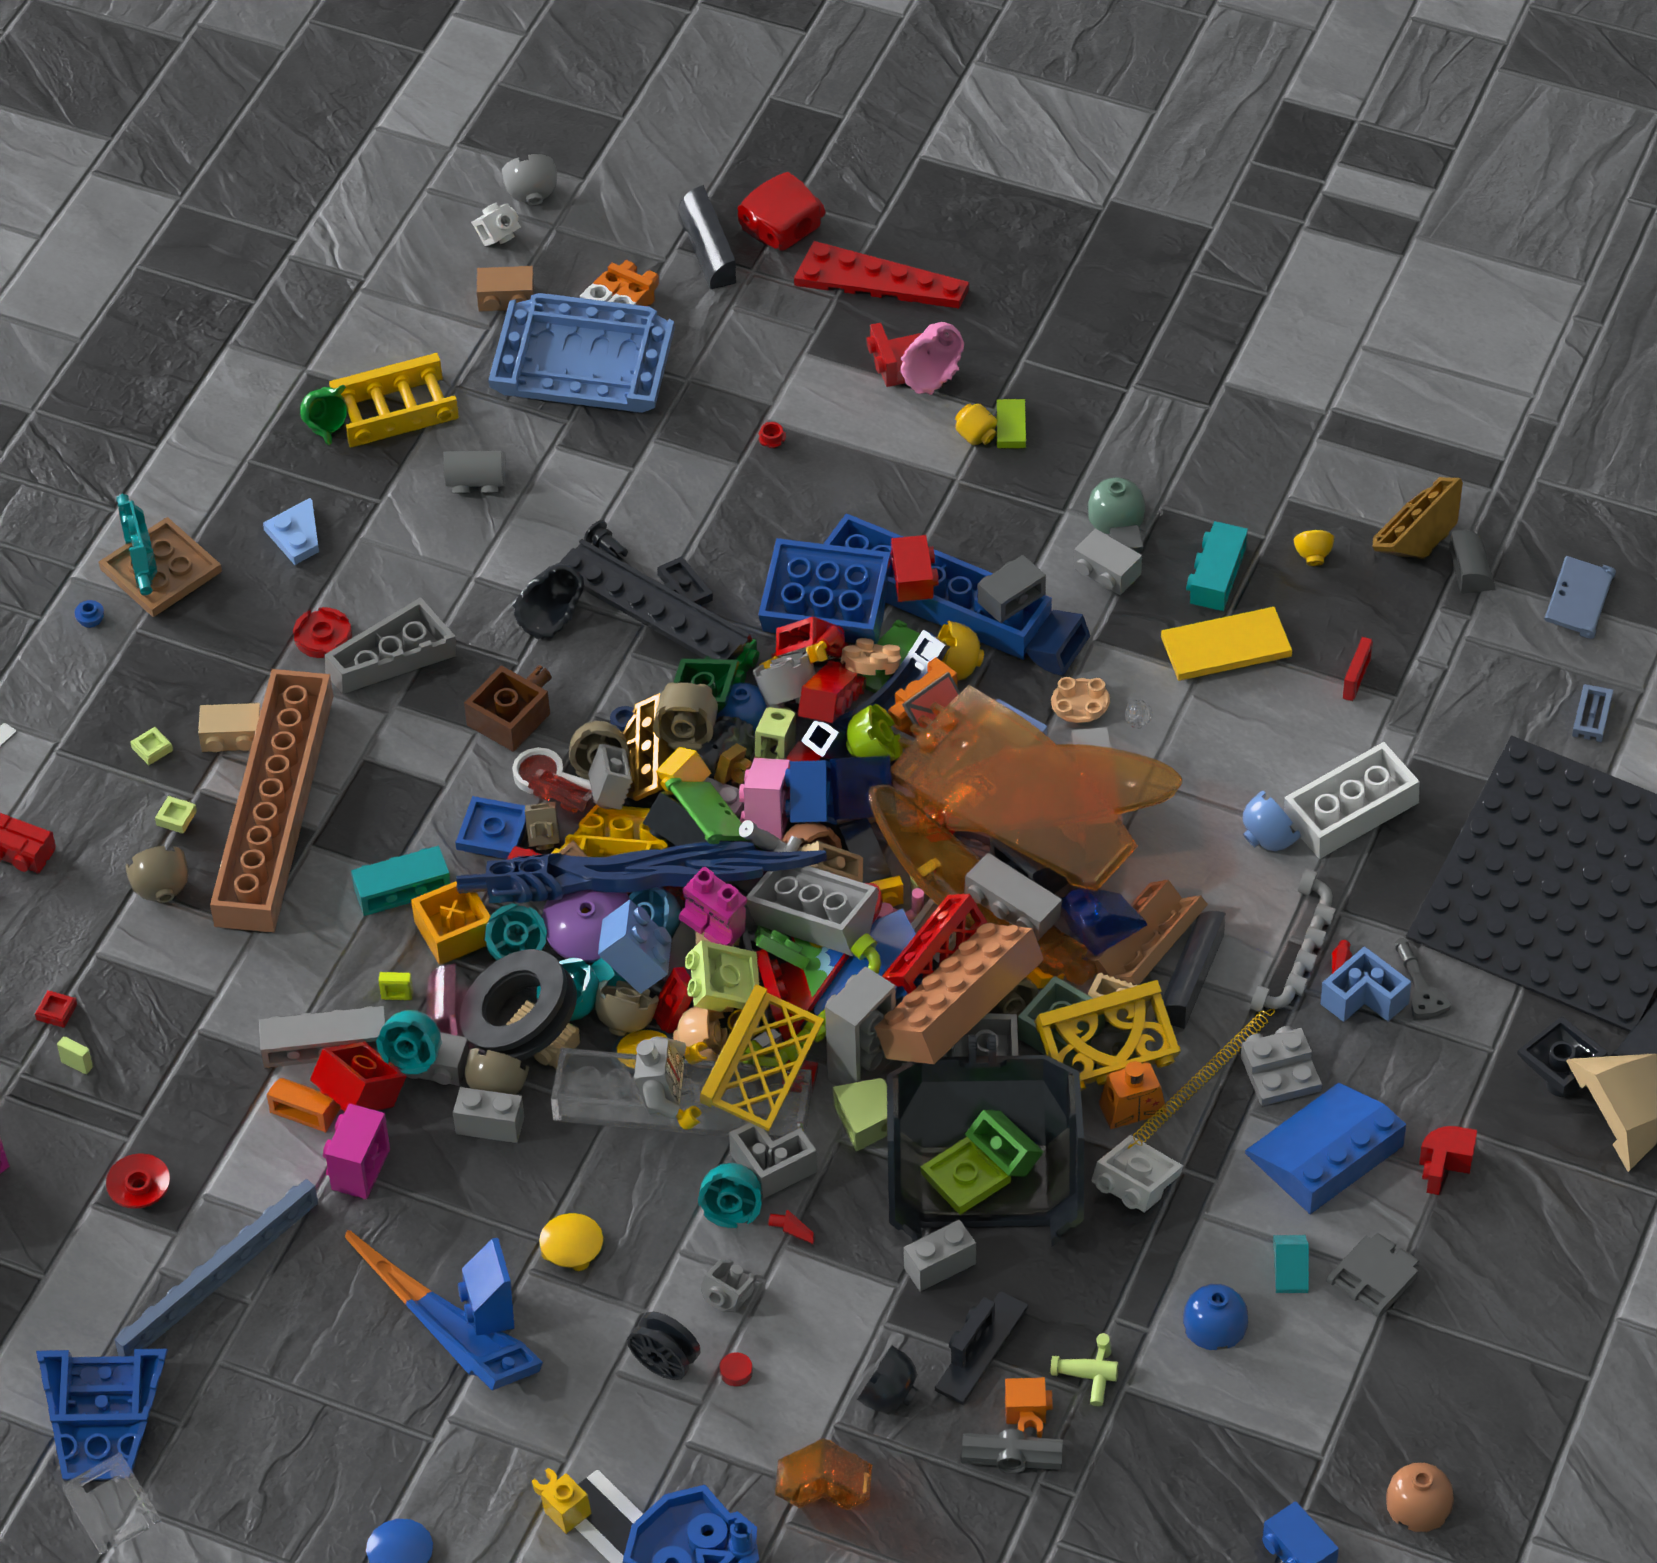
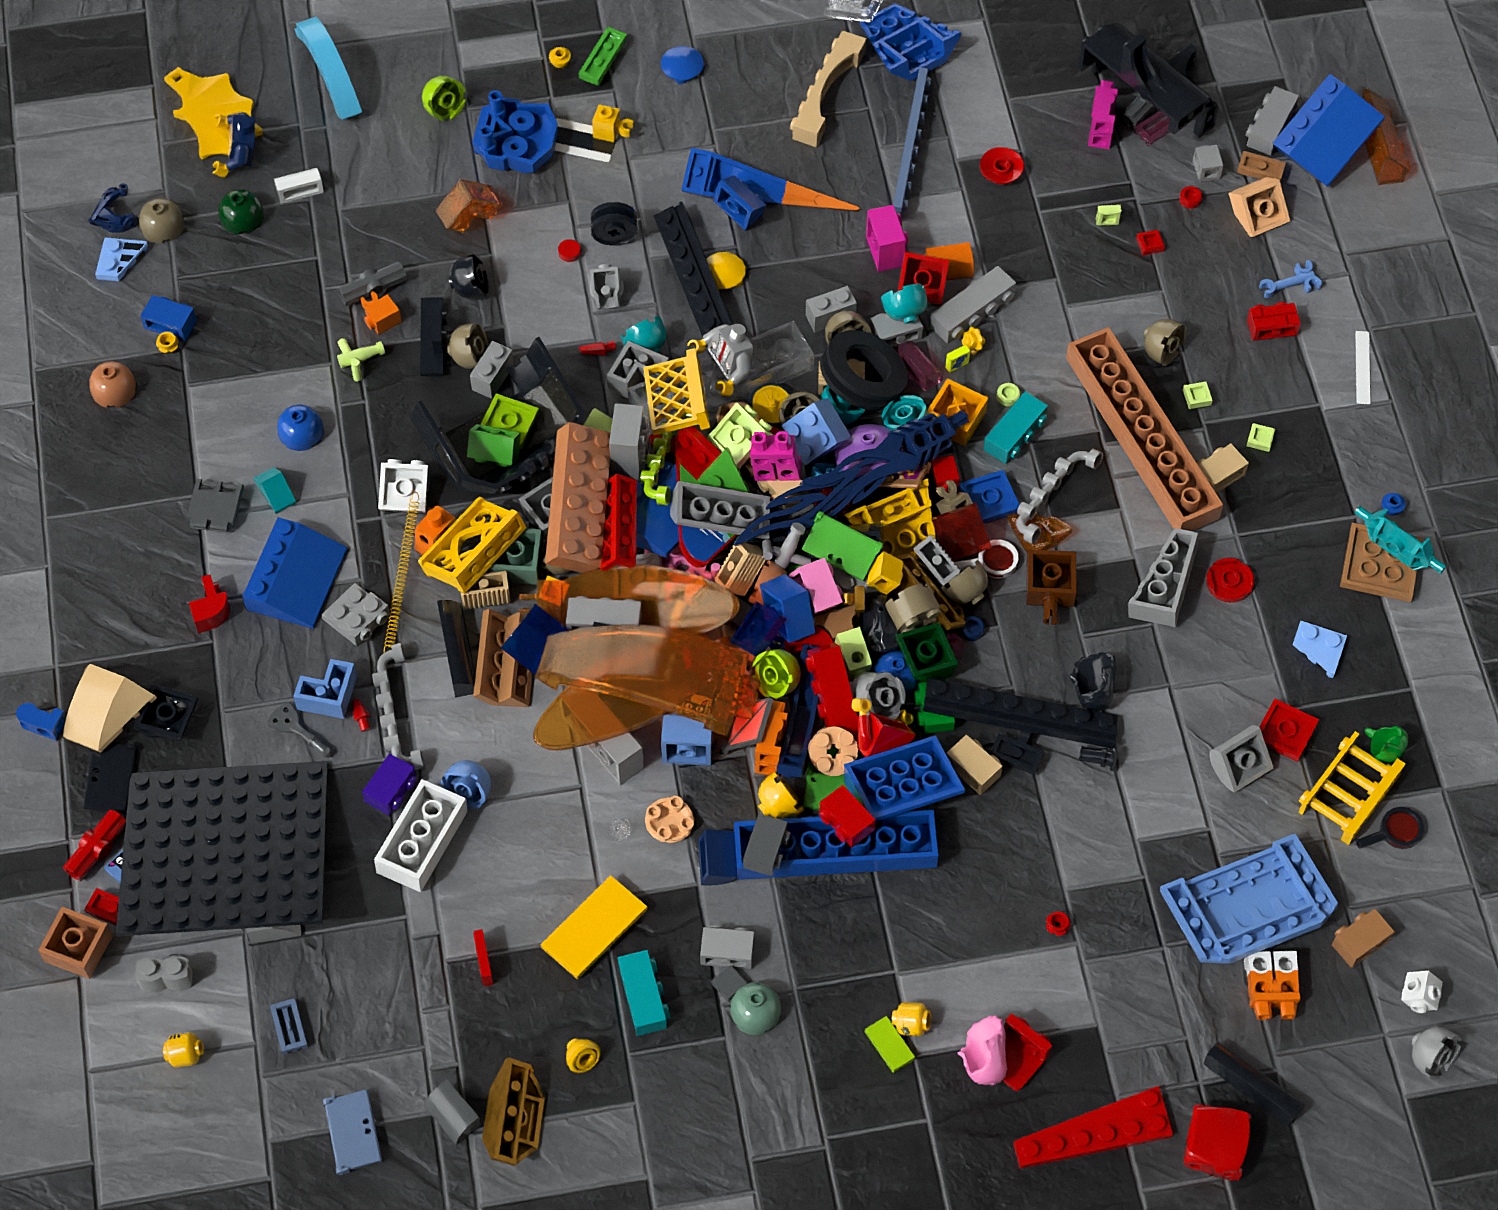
camera: 145 degrees right, 10 degrees up
(191, 1434) = (845, 54): none -> tan arch
(359, 995) = (973, 340): none -> yellow plant
(372, 928) = (1008, 394): none -> yellowish green tile
(379, 352) = (1399, 828): none -> piece
(405, 476) = (1287, 729): none -> red plate
(413, 807) = (1051, 481): none -> light grey bar
(472, 771) = (1052, 531): none -> clear orange brick
(612, 1242) = (692, 268): none -> black plate
(735, 593) = (974, 764): none -> tan brick
(951, 1295) = (467, 345): none -> dark tan cylinder
(1322, 1510) = (163, 339): none -> yellow plate
(1354, 869) = (389, 784): none -> dark purple brick

